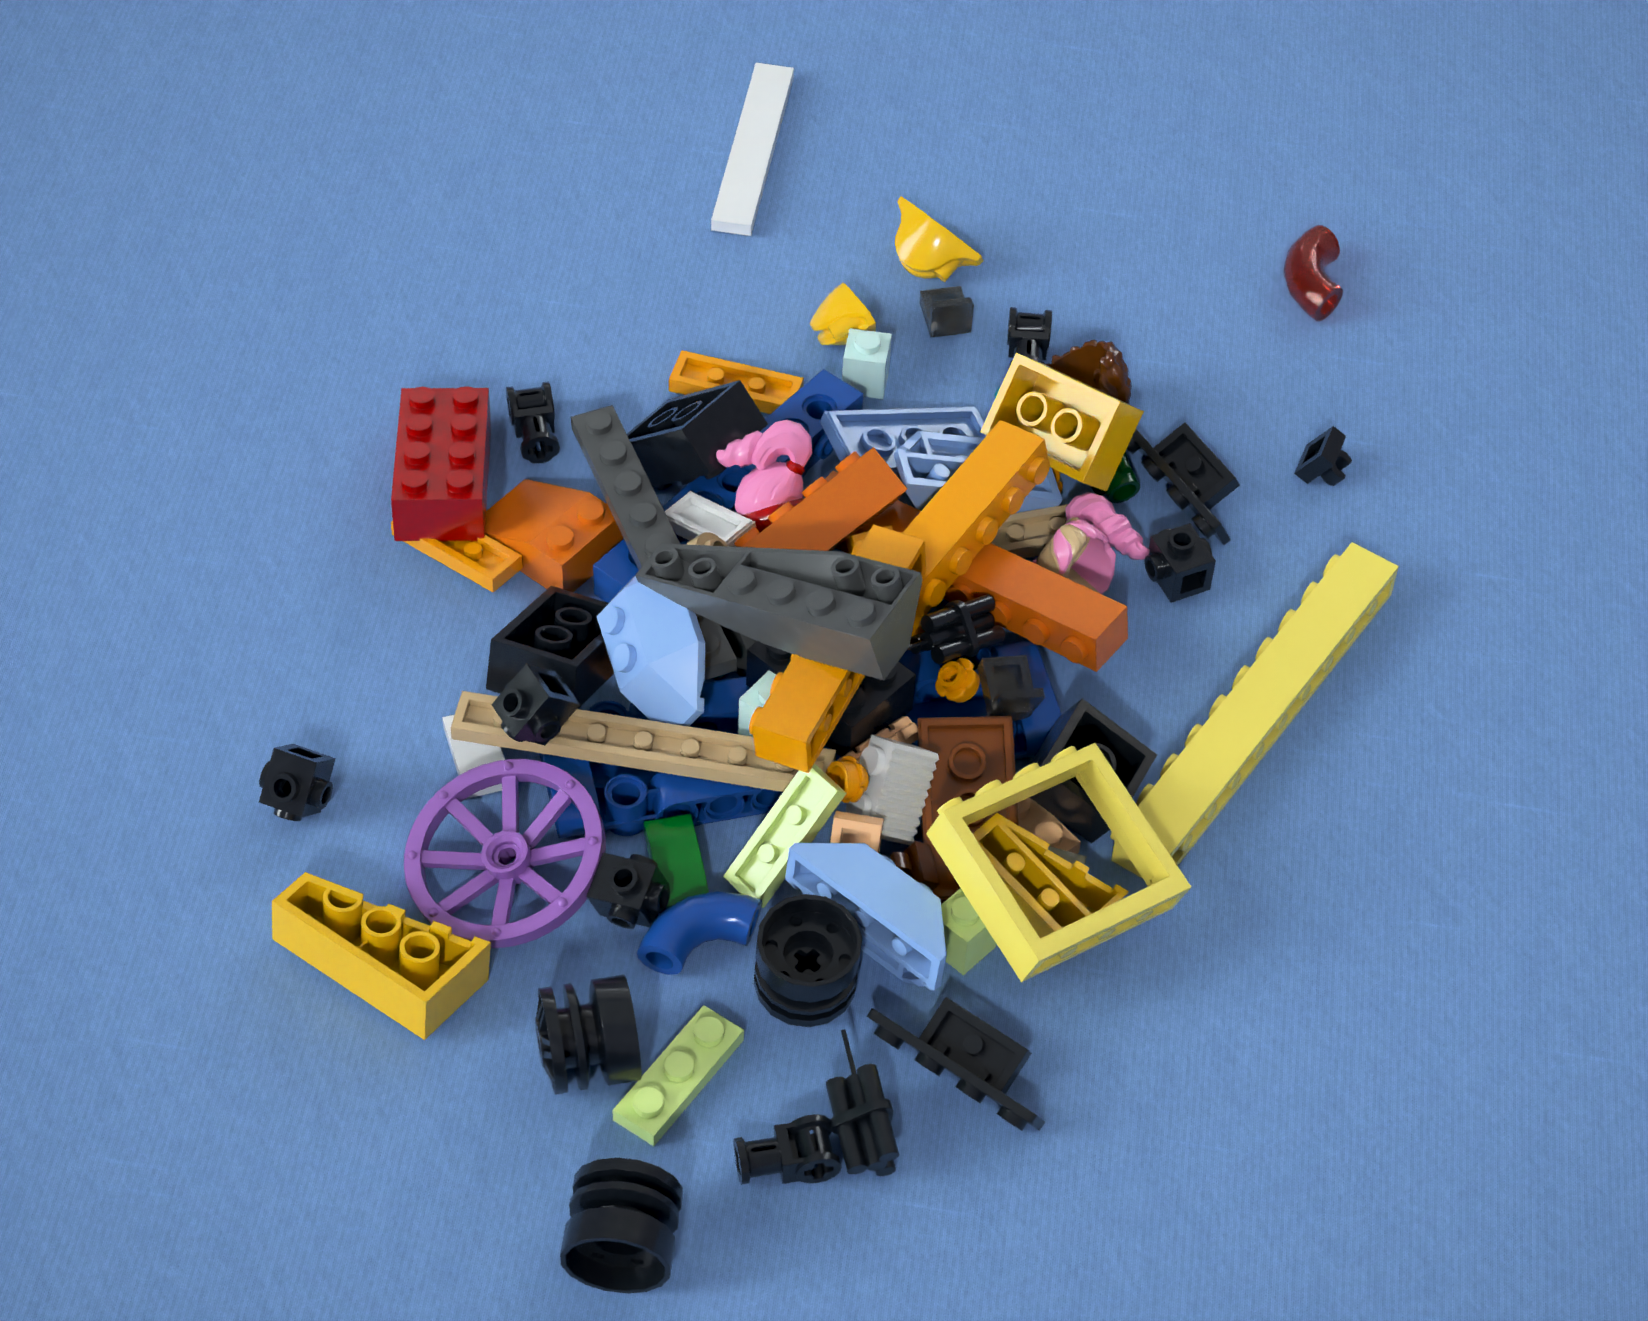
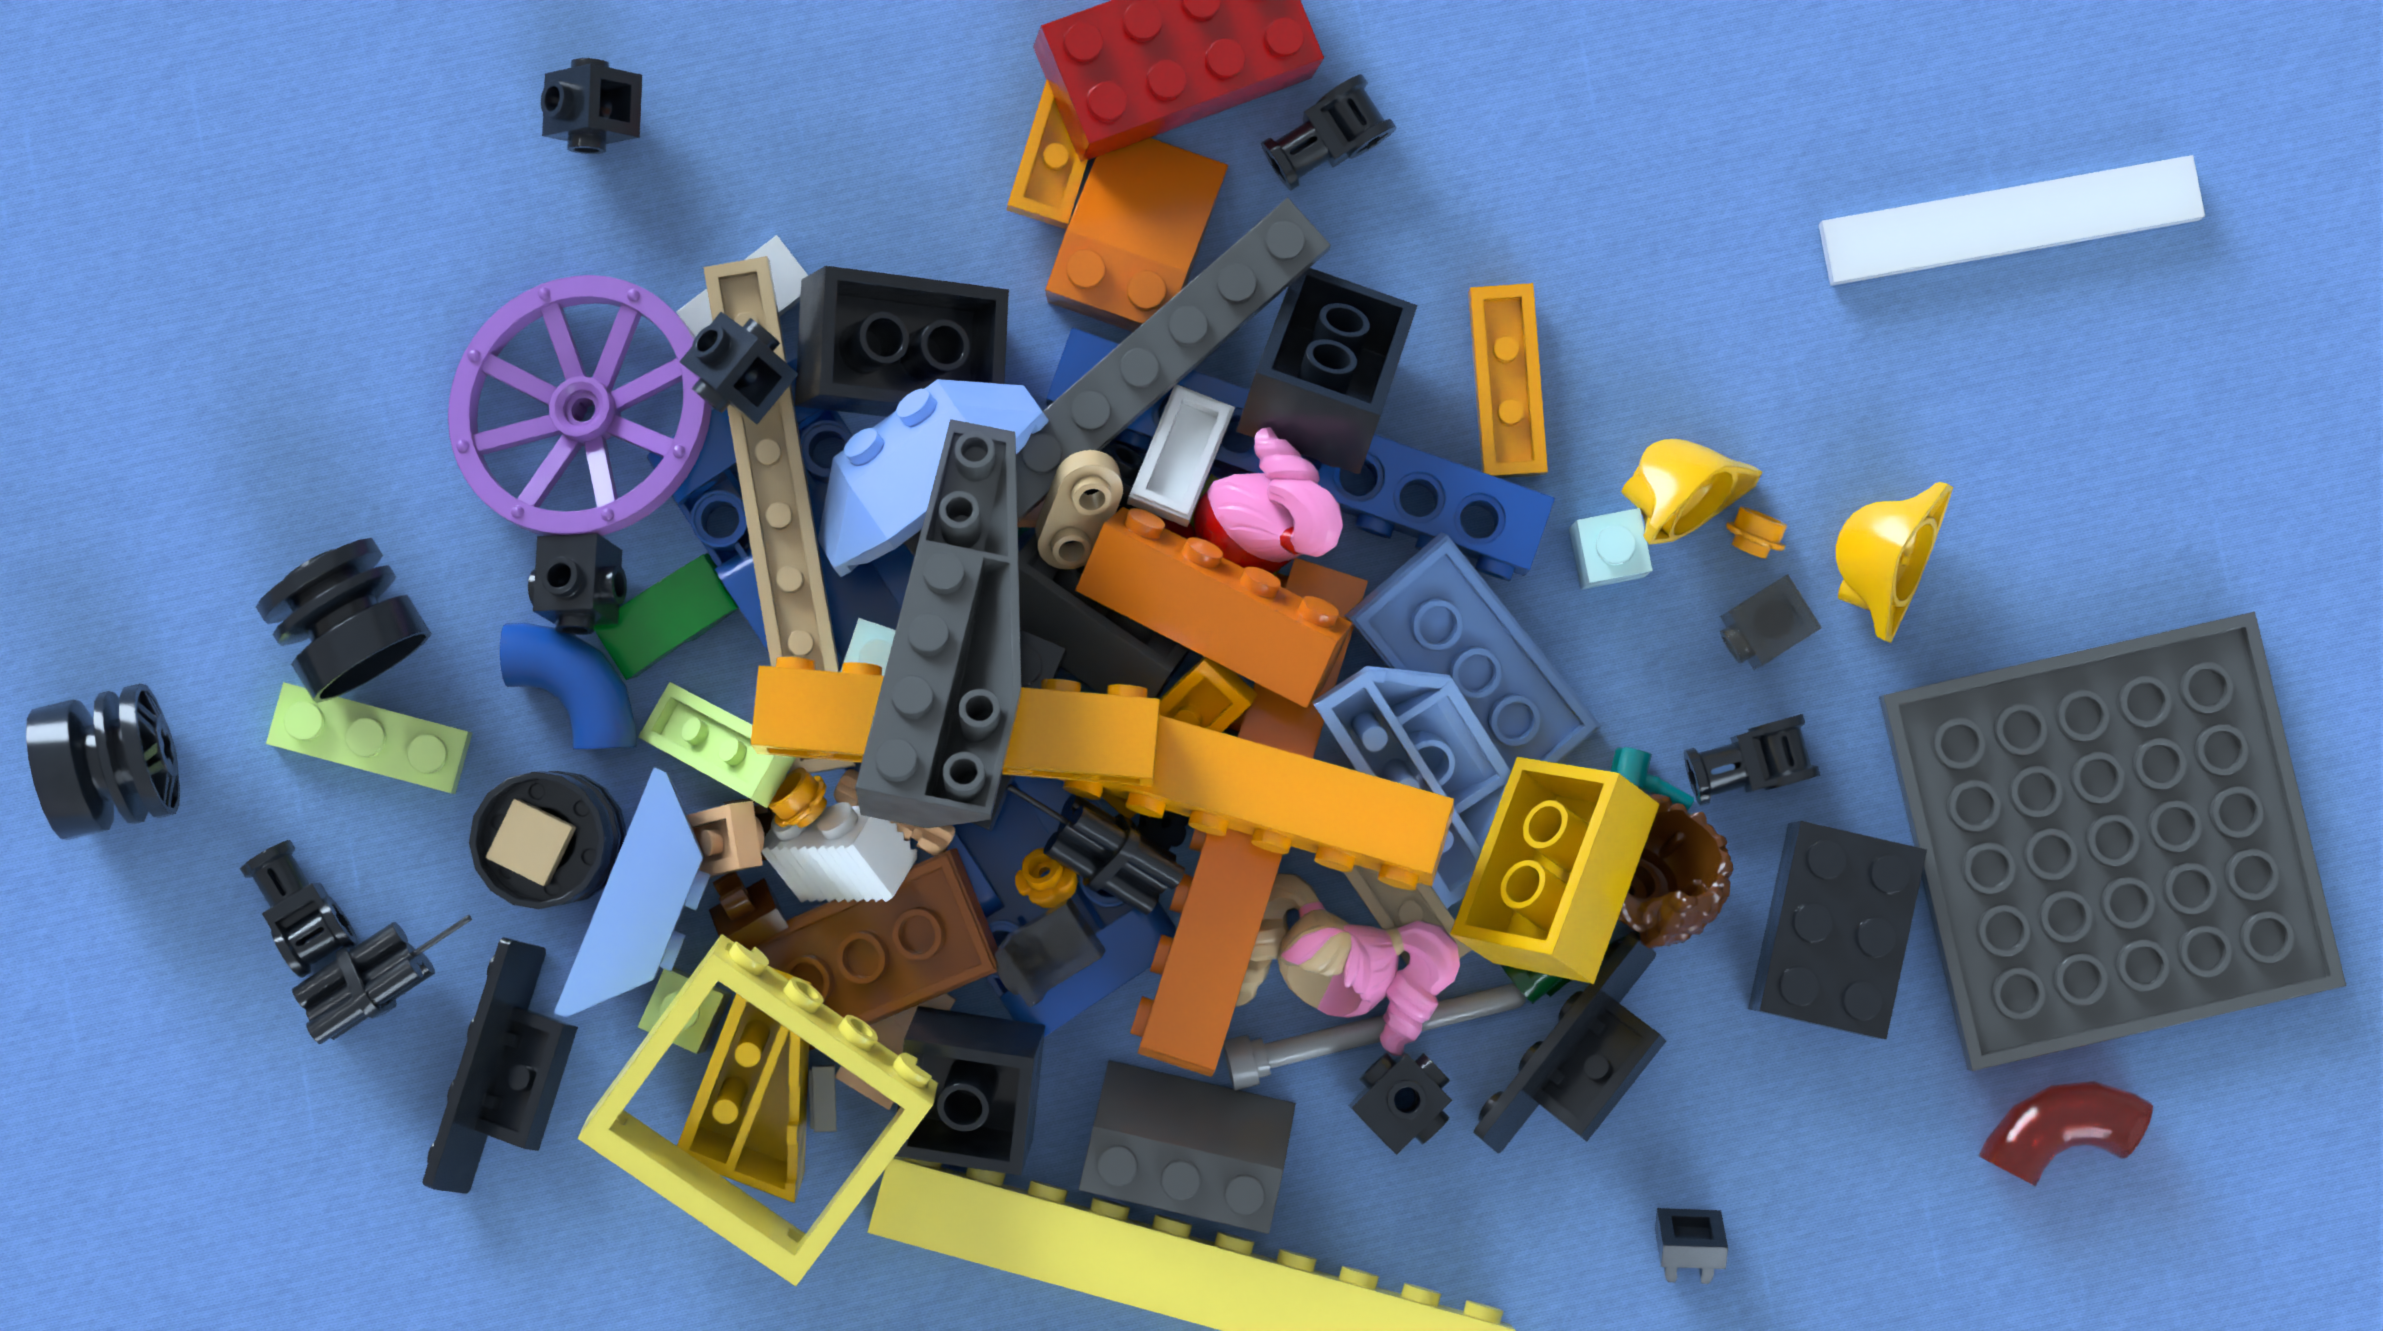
camera: 65 degrees right, 35 degrees up
(379, 954) = (376, 331): yellow wedge -> none
(807, 952) = (531, 842): none -> tan tile
(886, 302) = (1756, 532): none -> light orange plate
(1125, 584) = (1253, 1059): none -> light grey piece
(1144, 209) = (2112, 841): none -> dark grey plate
(1159, 331) = (1837, 929): none -> black brick
(1174, 684) = (1188, 1147): none -> dark grey slope

